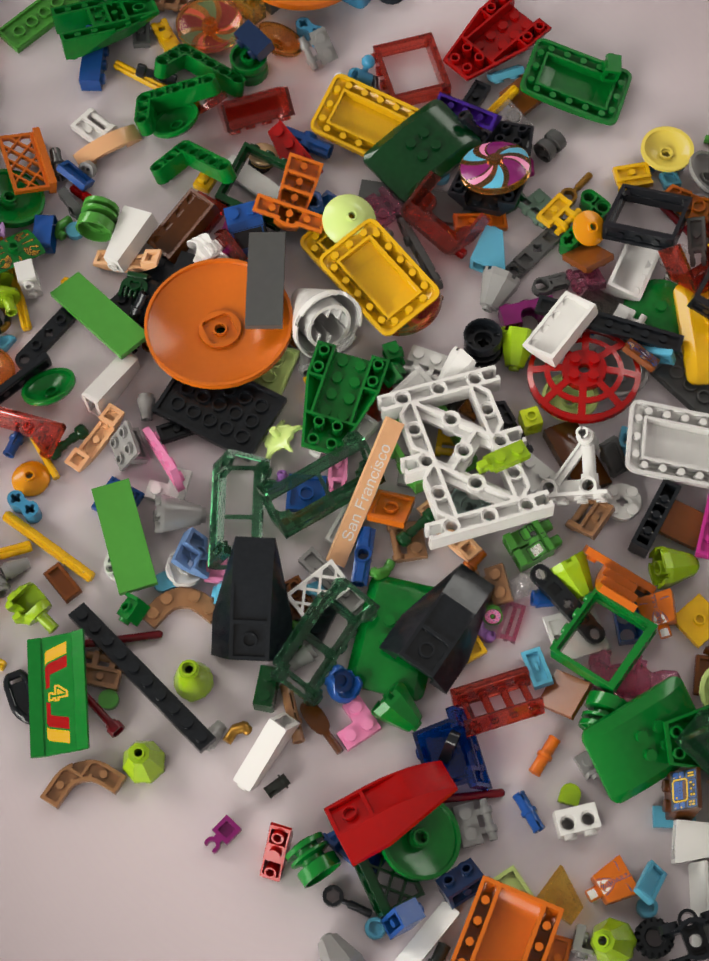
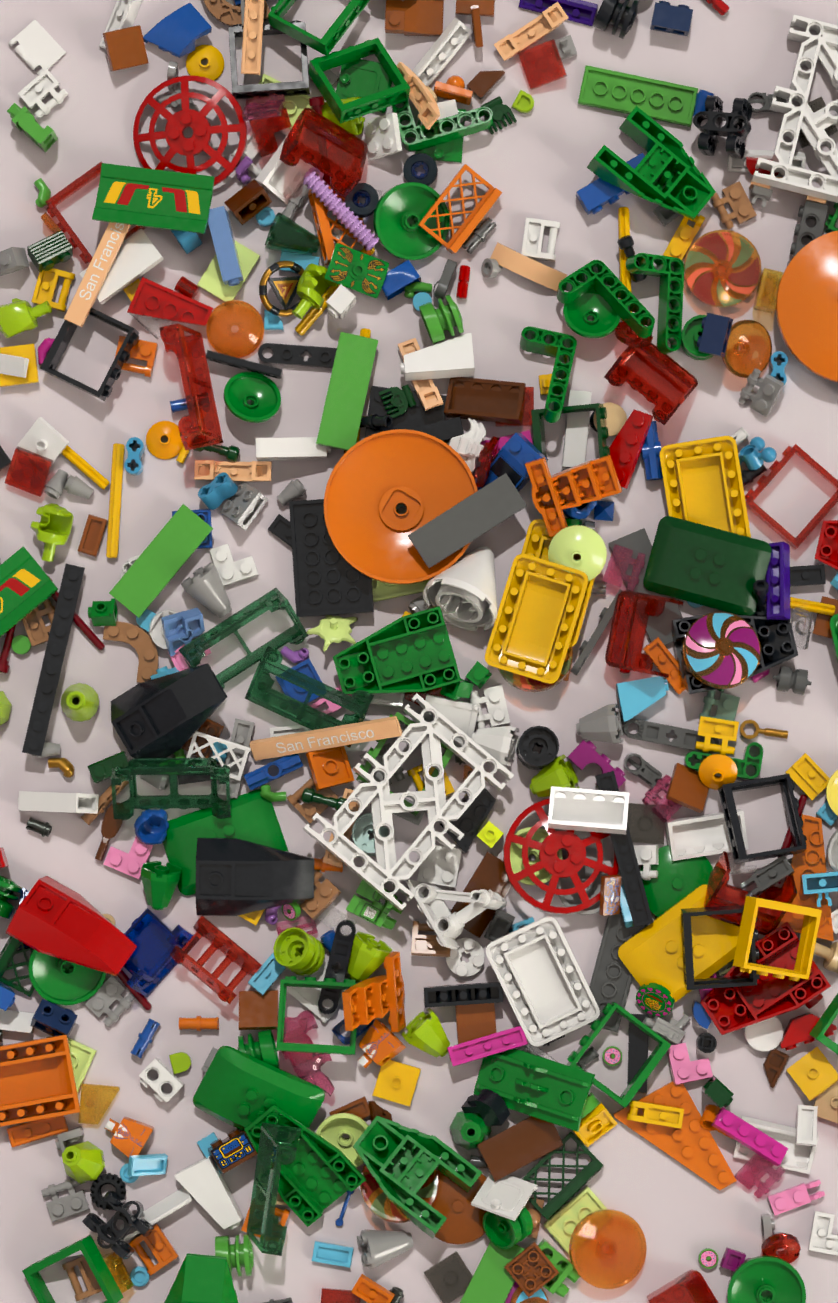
camera: 60 degrees right, 20 degrees up
(75, 175) = (475, 262): blue tile -> none
(102, 458) = (217, 491): none -> dark azure axle
(162, 455) = (238, 569): bright pink wing -> none
(449, 746) = (153, 945): black beam -> none
(504, 458) = (420, 841): lime hinge -> none
(534, 624) = (299, 951): none -> lime wheel

